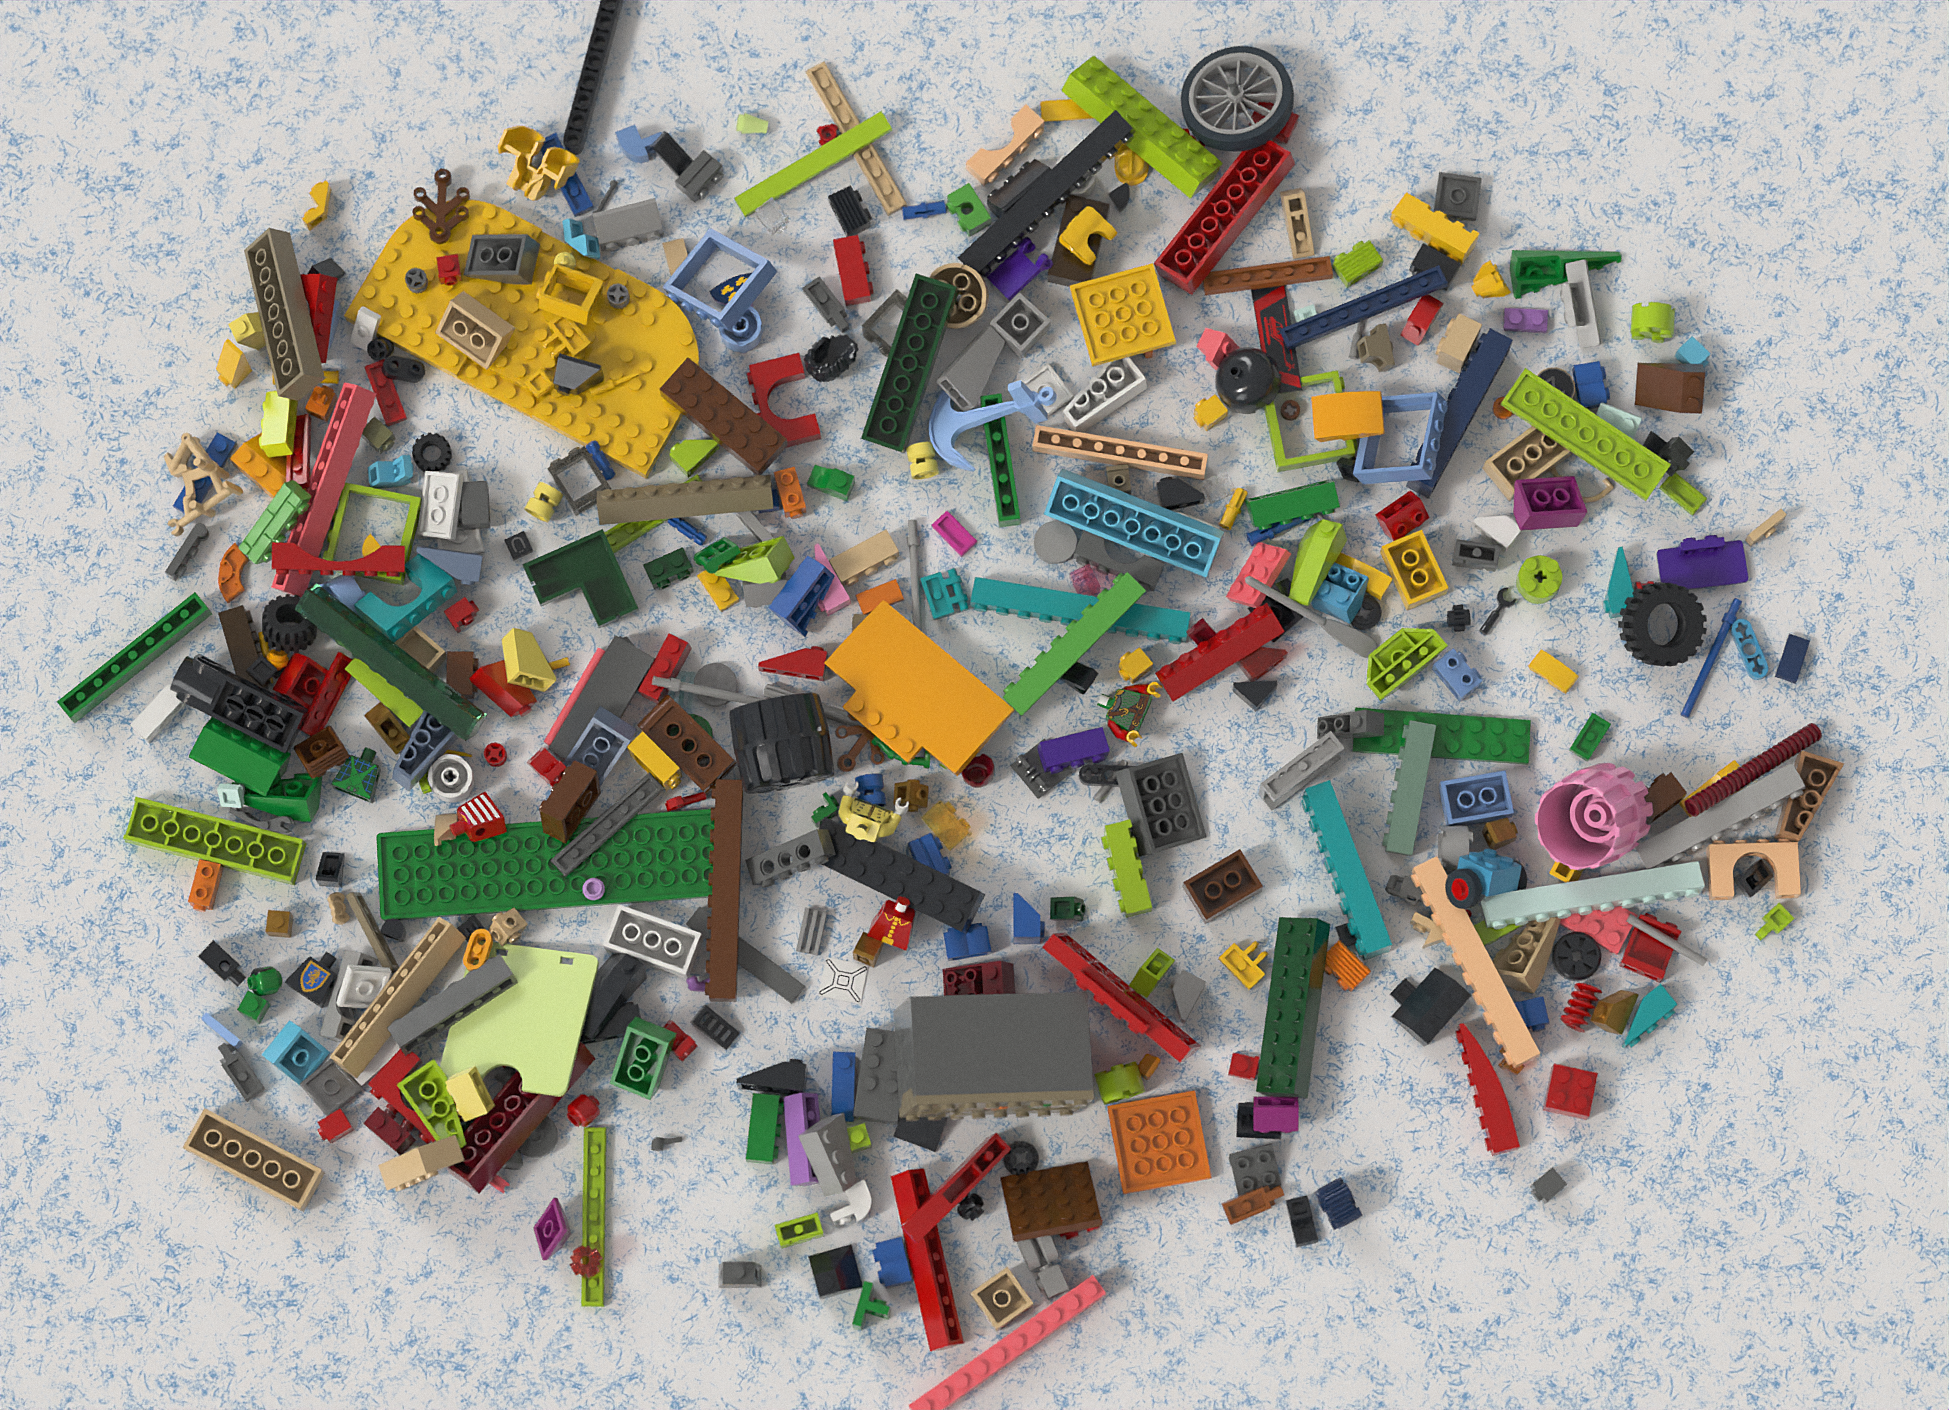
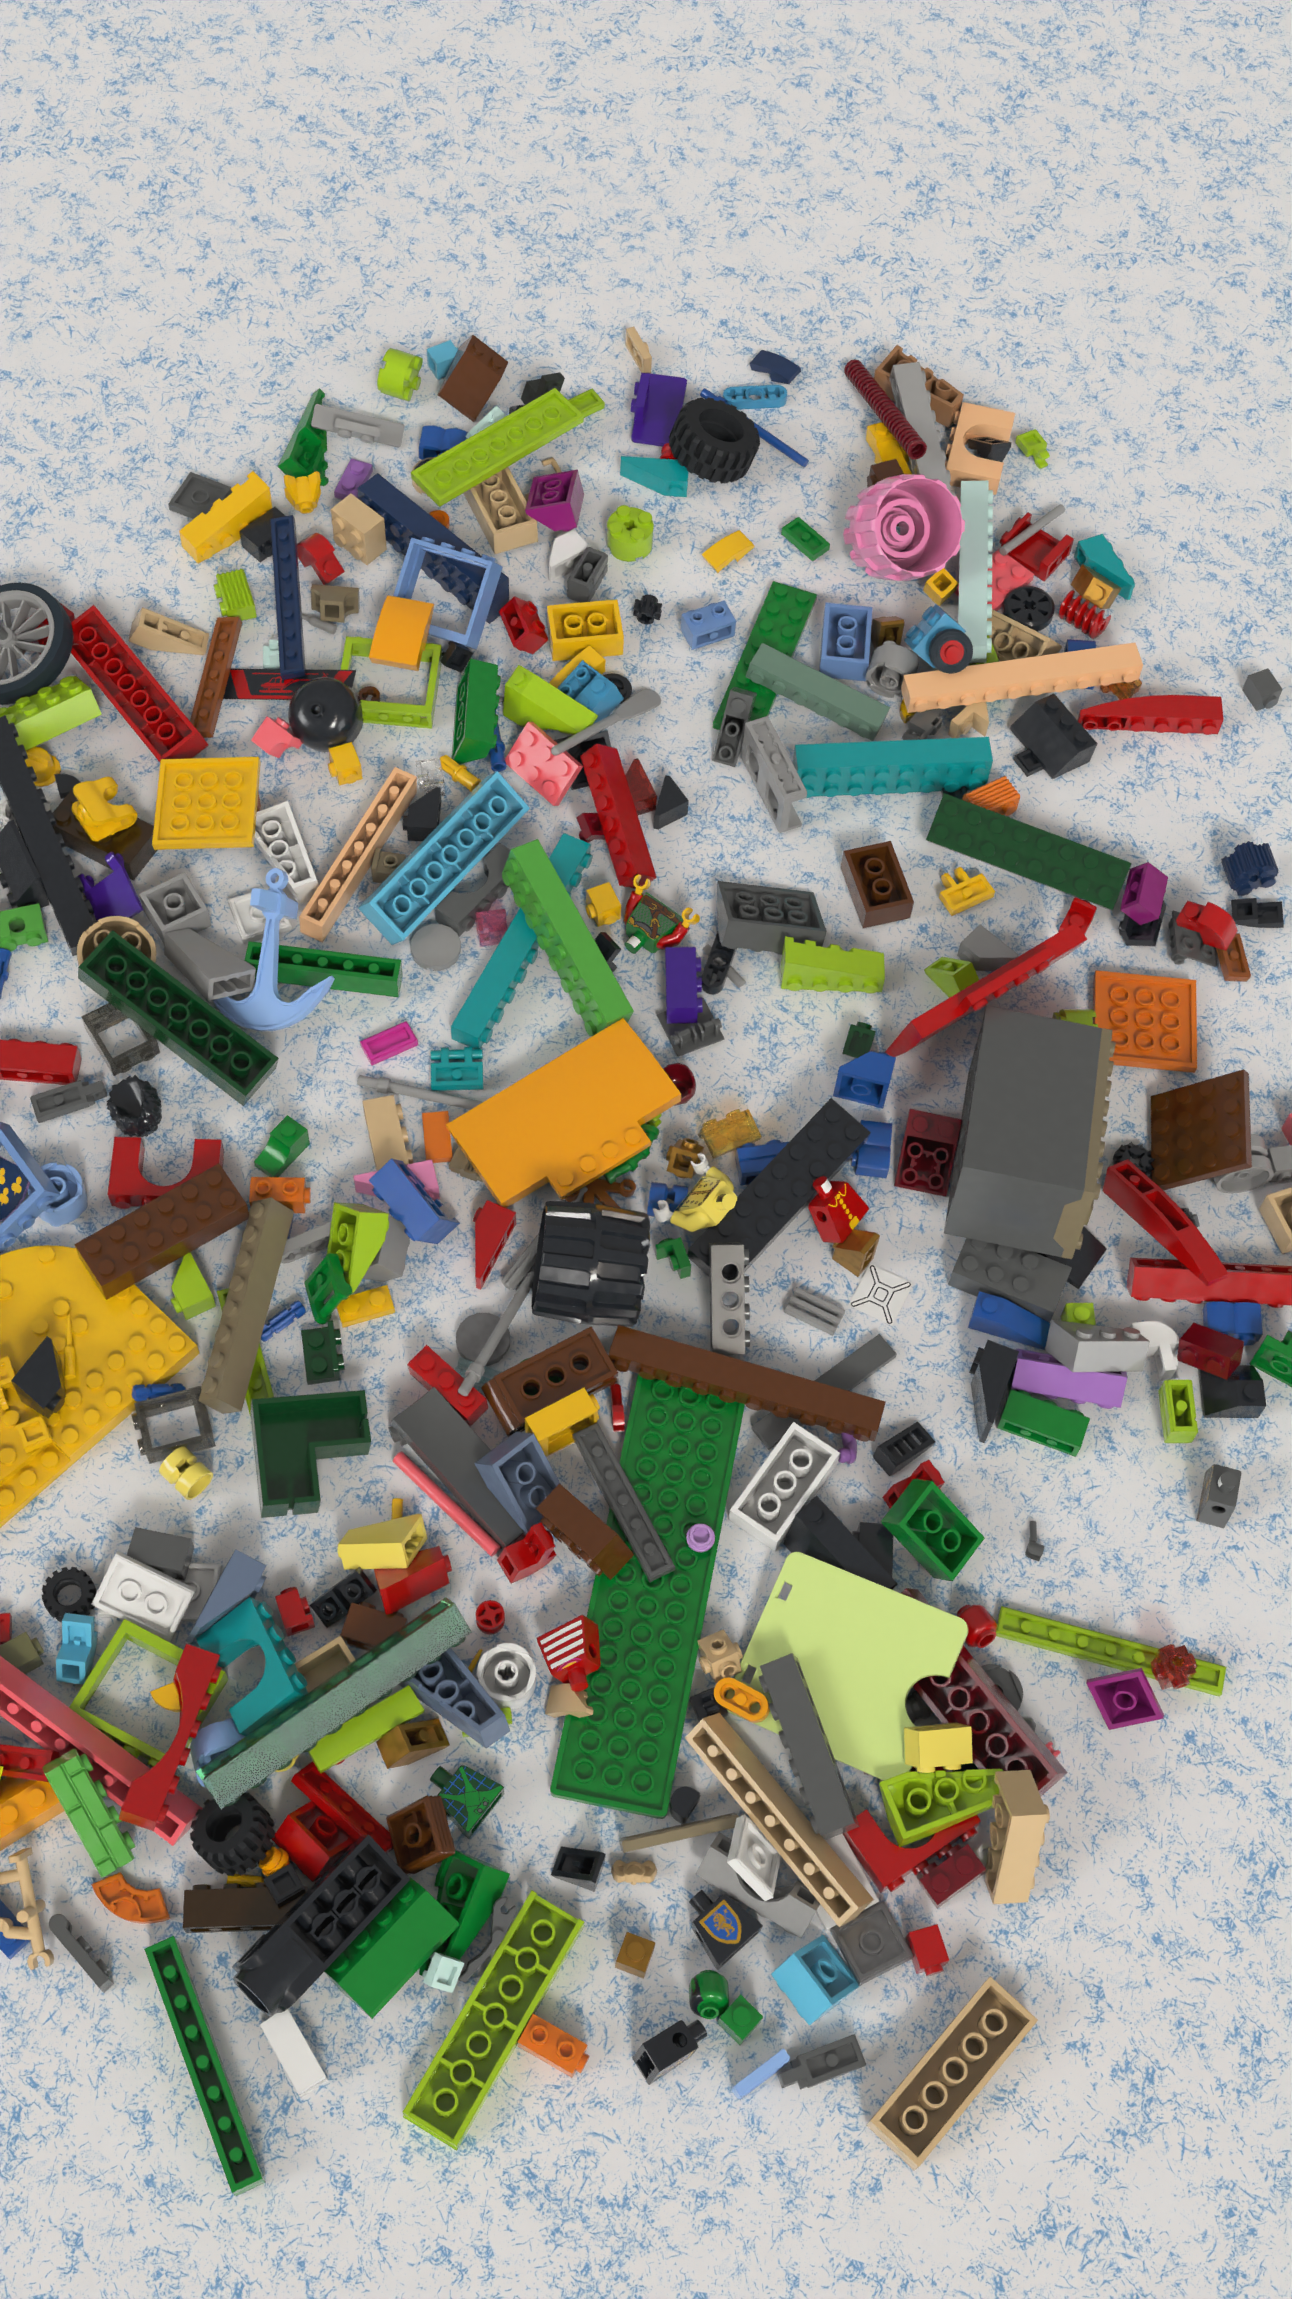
camera: 80 degrees left, 15 degrees down
(481, 644) = (338, 1599): none -> black slope
(518, 545) = (229, 1521): black tile -> none
(856, 1246) = (1210, 1351): none -> dark red brick
(924, 453) = (284, 1047): light yellow wheel -> none
(1148, 1065) = (1055, 1003): light orange slope -> none
(1259, 1174) = (1211, 921): none -> red brick
(1401, 659) = (677, 661): lime wedge -> none
(1495, 614) = (636, 575): black piece -> none
(1570, 1091) = (1169, 645): red brick -> none

